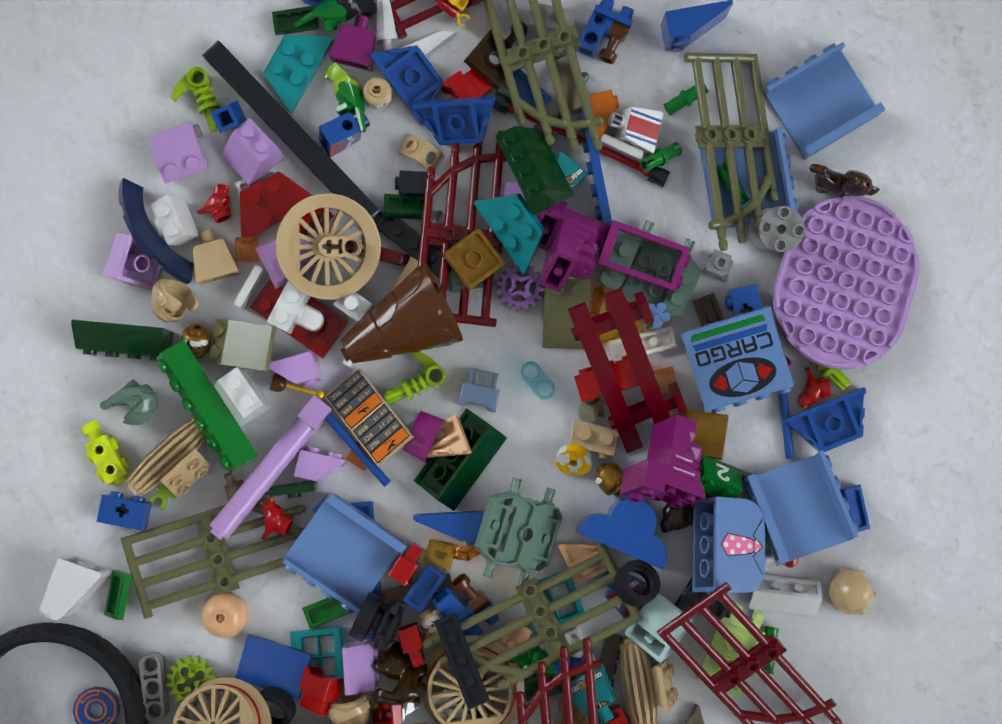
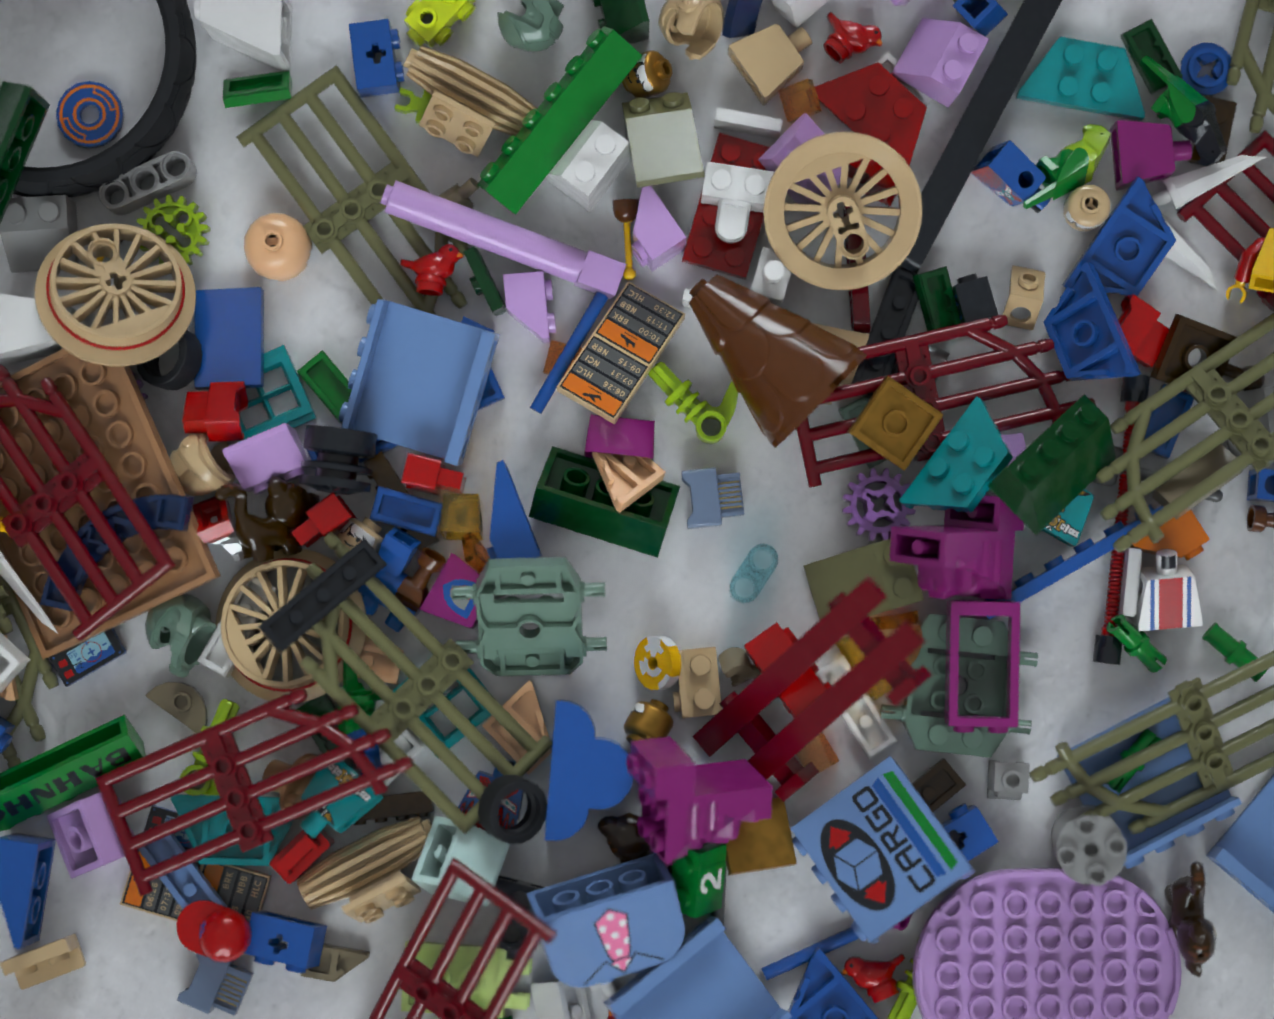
camera: 70 degrees right, 0 degrees up
(489, 586) = (439, 599): none -> magenta torso
(659, 314) = (906, 713): medium blue plant -> none

